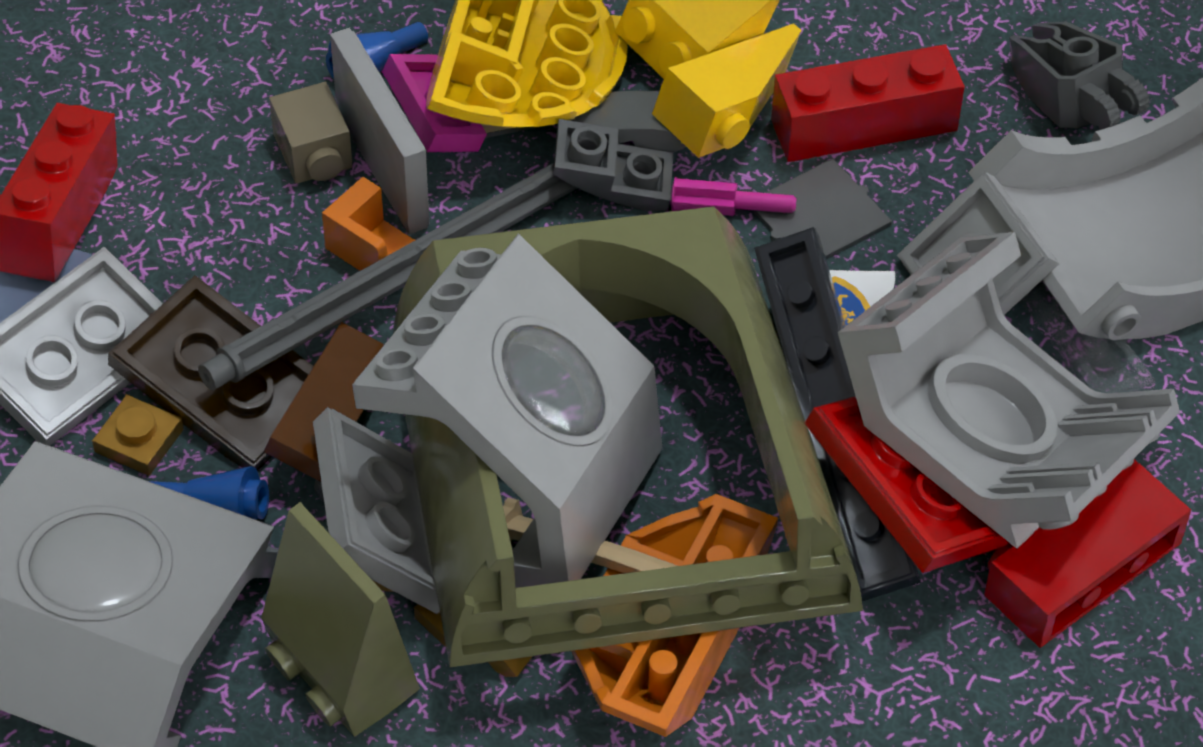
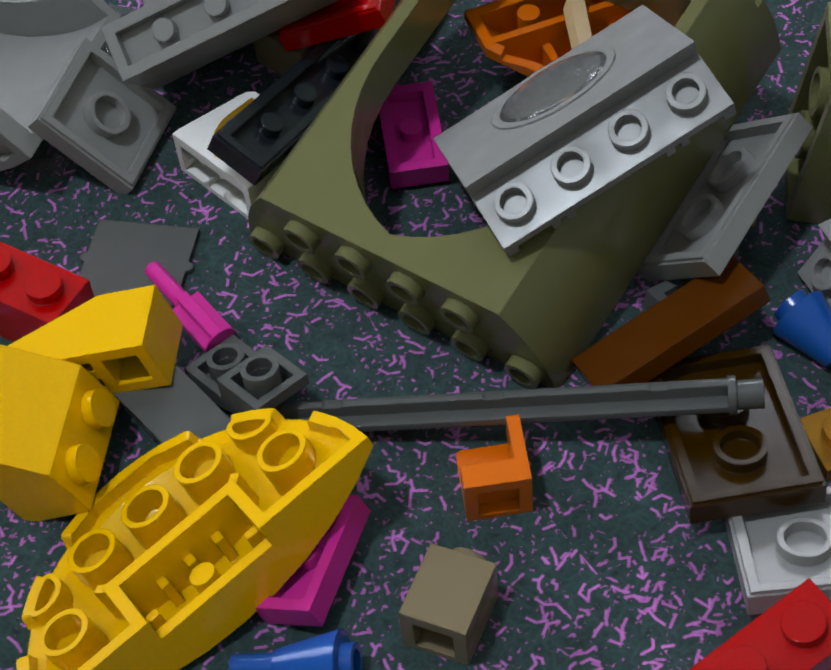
camera: 130 degrees left, 0 degrees up
(380, 130) = (404, 520): light grey tile -> none
(718, 442) = (408, 127): none -> dark pink plate

